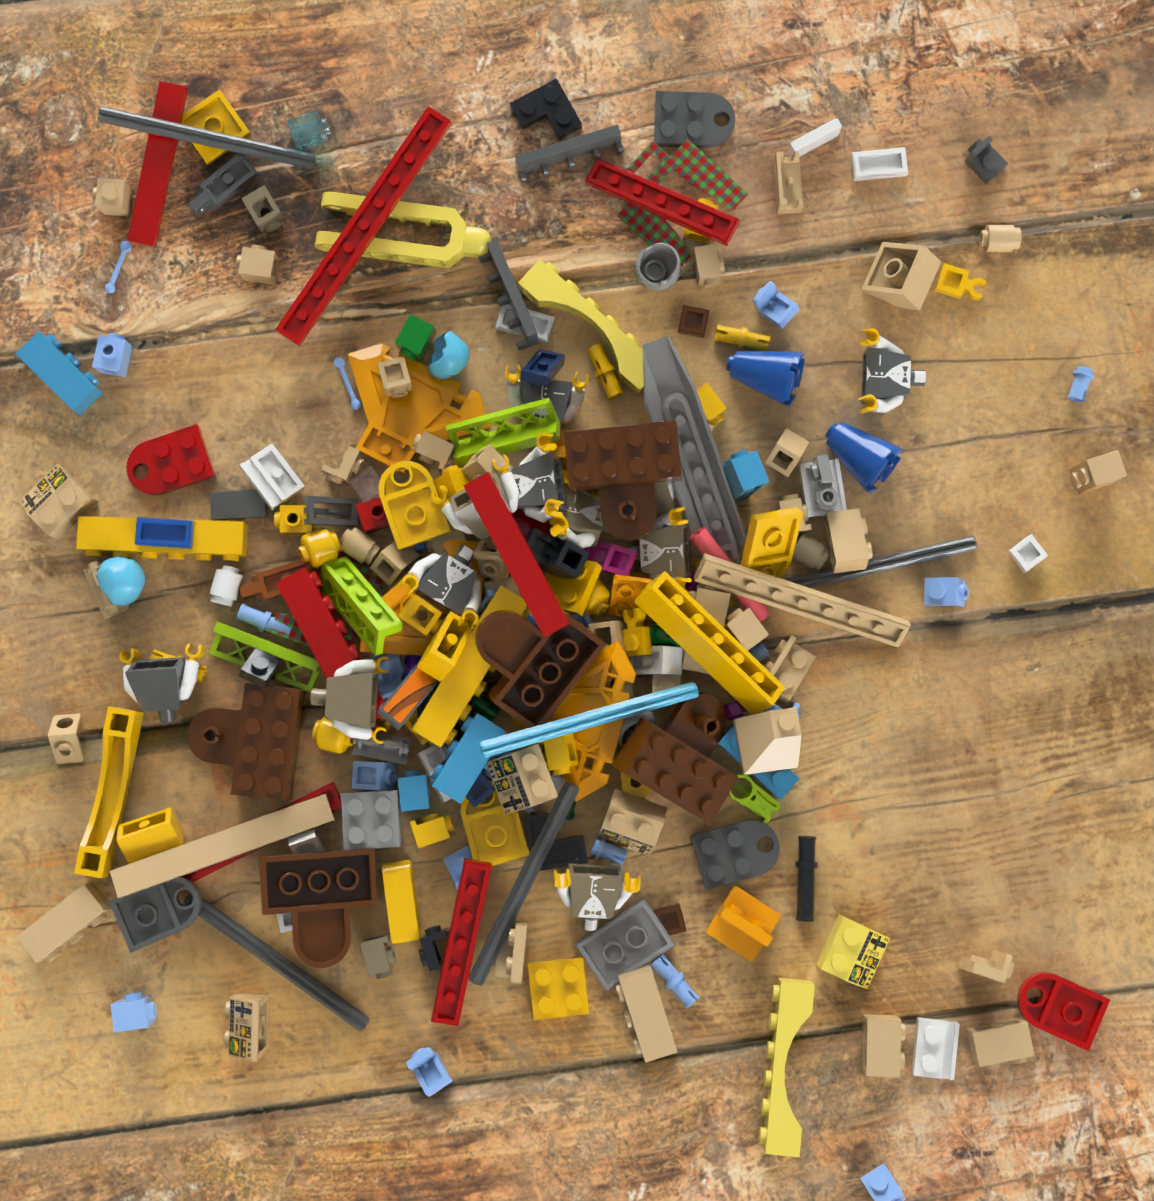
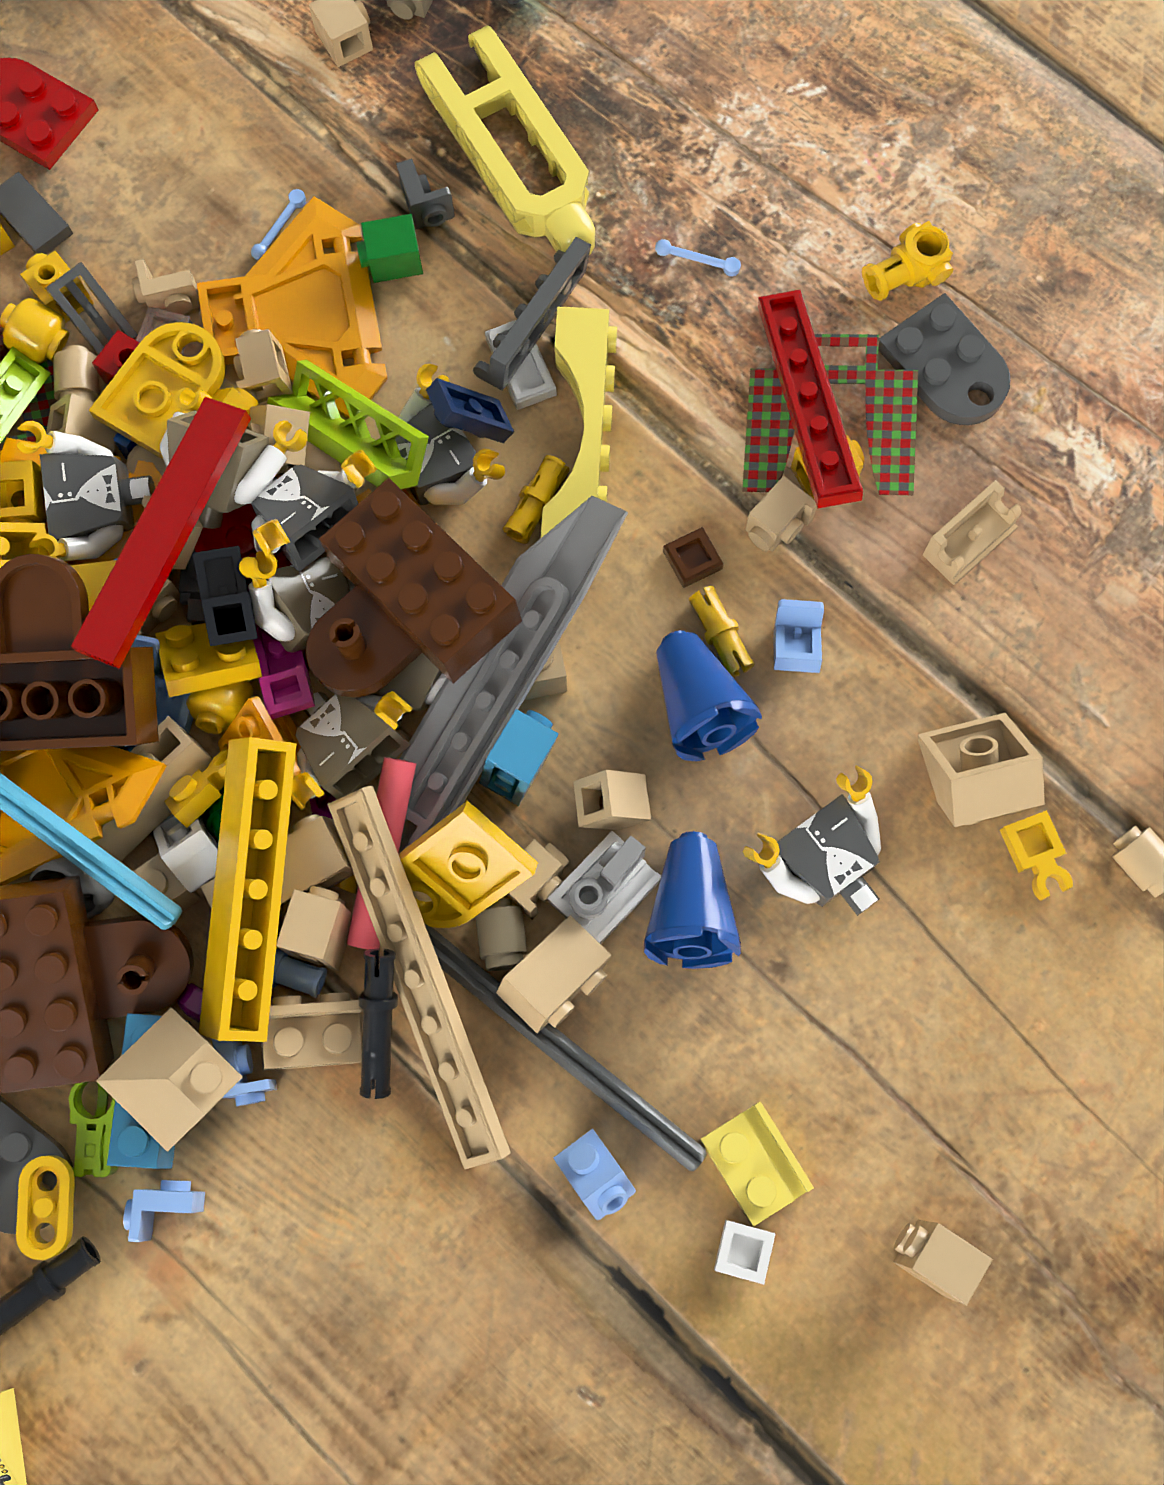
camera: 55 degrees right, 10 degrees down
(272, 477) = (88, 221): white plate -> none
(363, 226) = (475, 84): red plate -> none
(392, 303) = (425, 206): none -> dark grey bracket
(395, 377) = (319, 259): tan bracket -> none
(449, 356) = (400, 302): medium azure hair -> none
(550, 103) = (817, 189): black plate -> none
(554, 180) = (730, 266): none -> light blue hinge
(568, 150) = (778, 249): dark grey hinge -> none
(627, 95) = (908, 264): none -> yellow connector
(658, 267) = (722, 456): light grey hair -> none
(711, 404) = (592, 653): yellow brick -> none
(775, 840) = (41, 1206): none -> yellow plate
(801, 628) = (377, 1006): none -> black pin
(811, 785) = (171, 1197): none -> light blue bracket
(815, 138) = (1060, 521): white tile -> none
(879, 164) = (1102, 629): white tile -> none
(994, 518) = (756, 1164): none -> light yellow plate
(1080, 384) = (1048, 1135): light blue pin -> none

